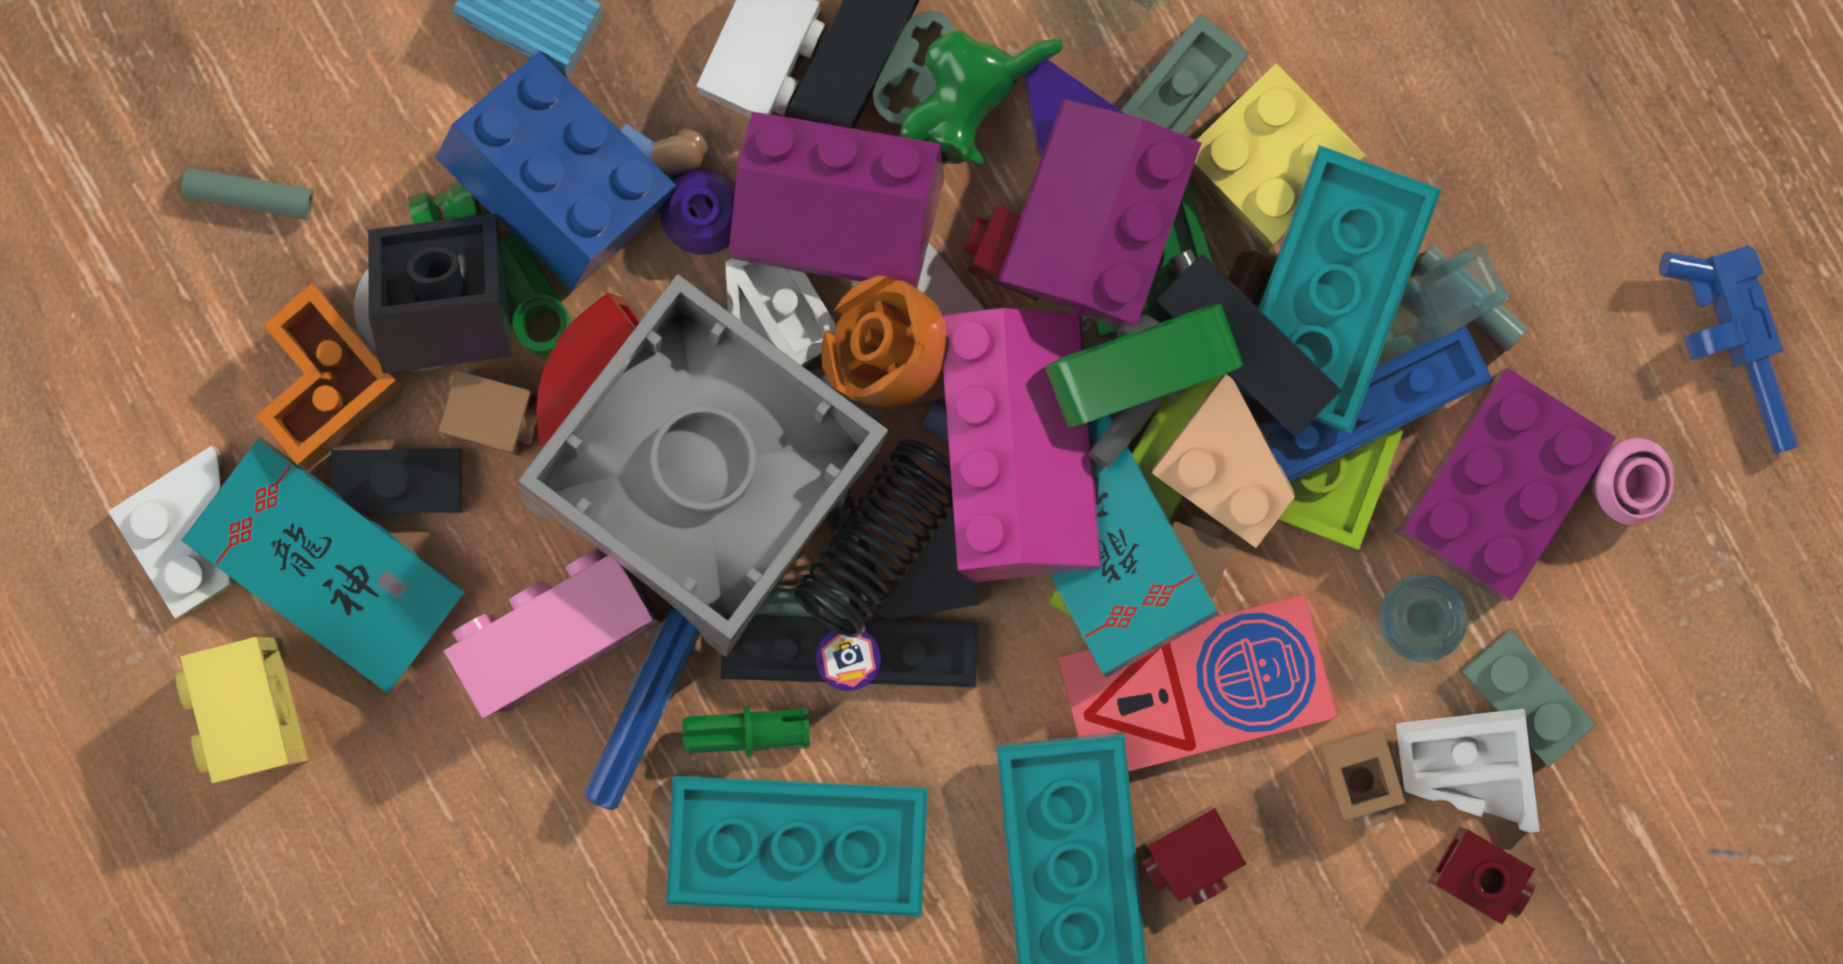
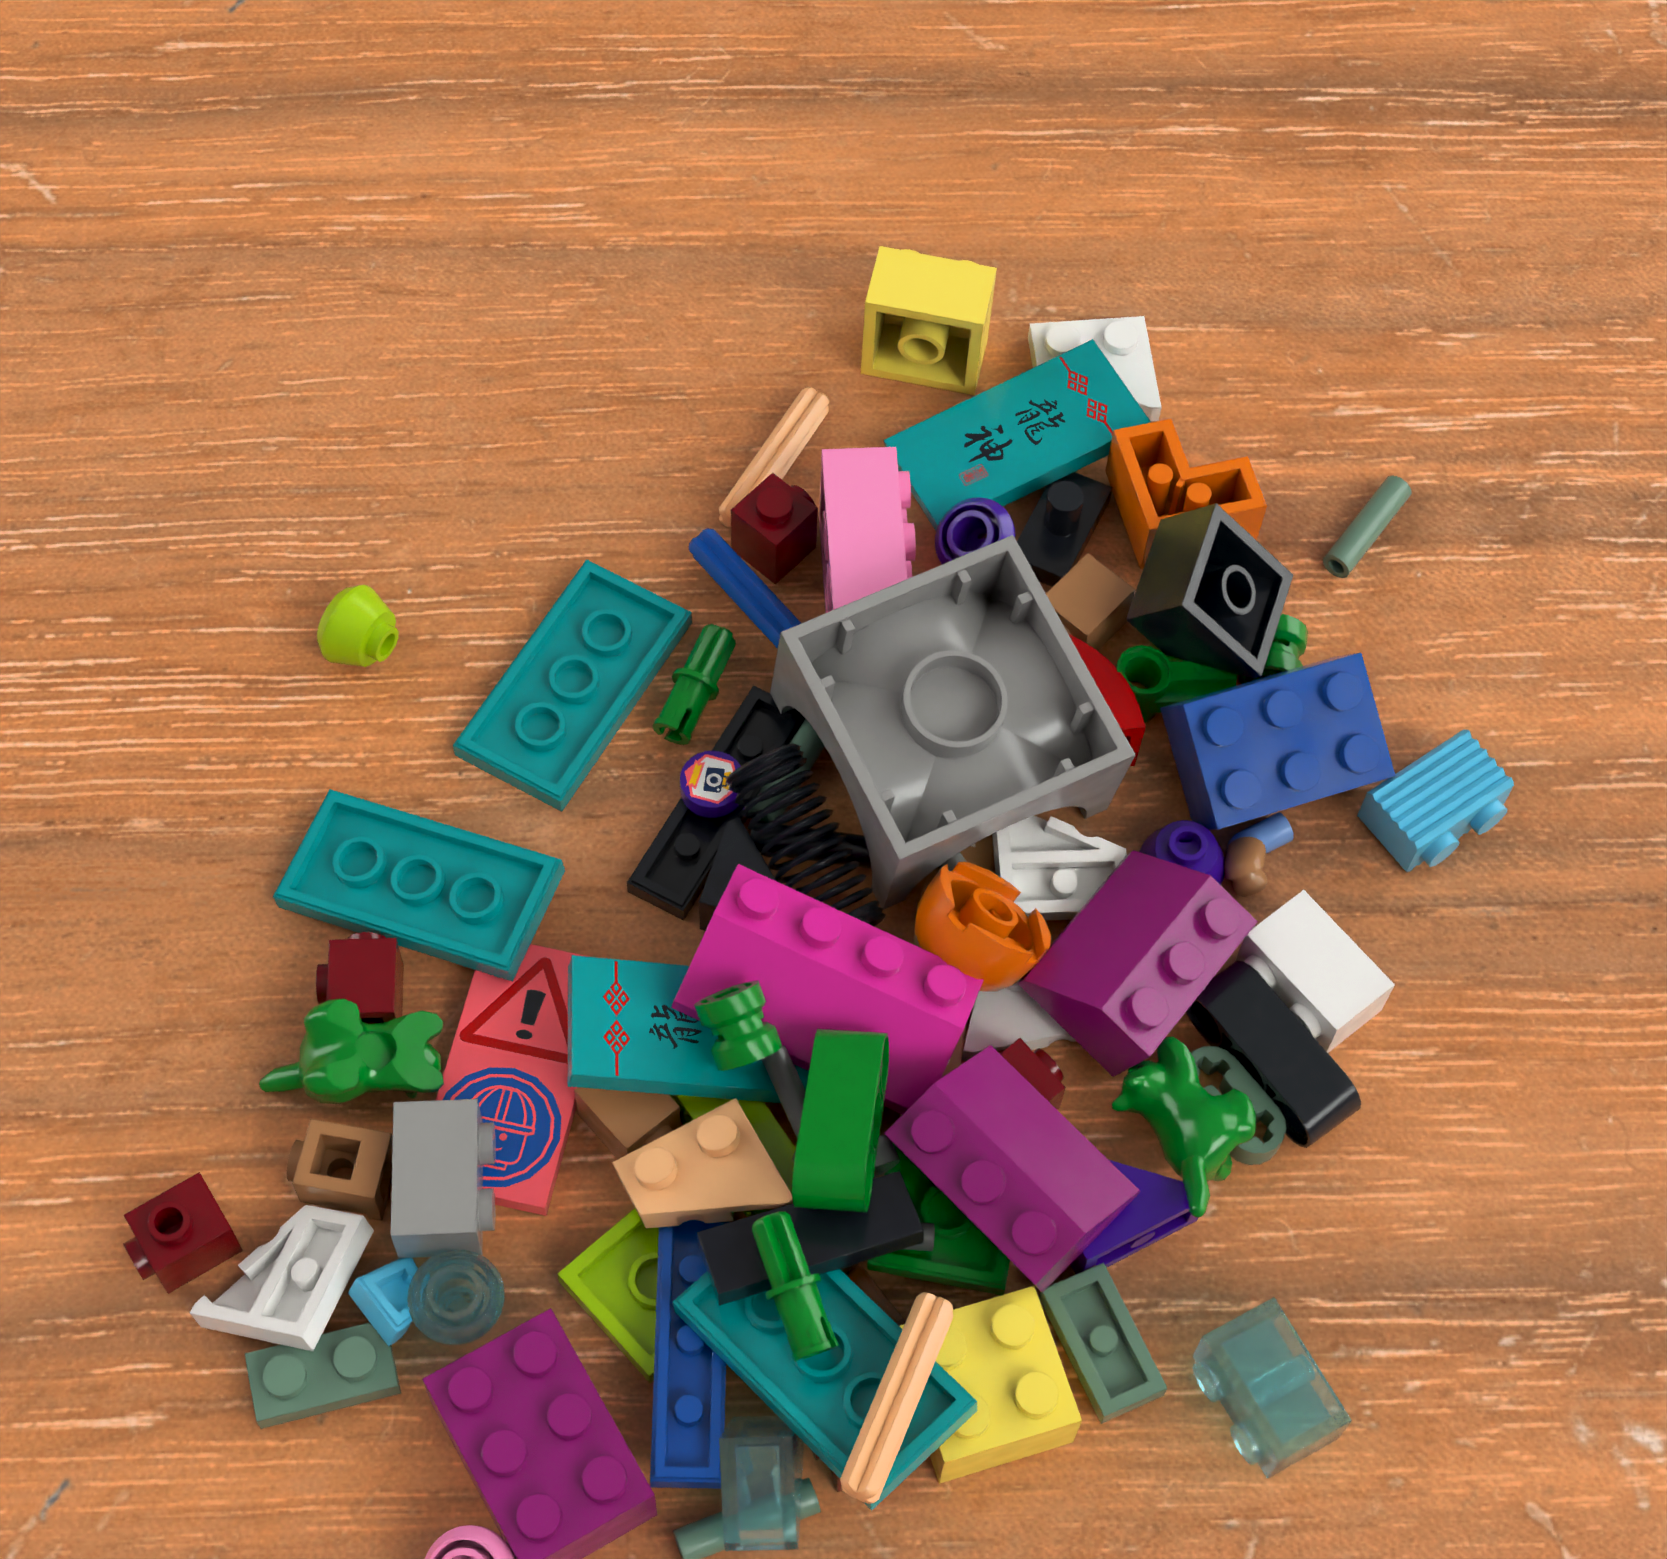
camera: 110 degrees right, 25 degrees down
(460, 788) = (780, 447): none -> light nougat axle
(469, 560) = (971, 527): none -> dark purple cone
(545, 742) = (774, 527): none -> dark red brick
(1098, 499) = (736, 1020): none -> green wheel
(1272, 821) = (350, 1057): none -> green animal
(1309, 330) = (793, 1287): none -> green axle
(1337, 685) = (439, 1177): none -> light grey brick
(1353, 206) = (896, 1398): none -> light nougat axle
(1447, 678) = (383, 1298): none -> medium azure tile

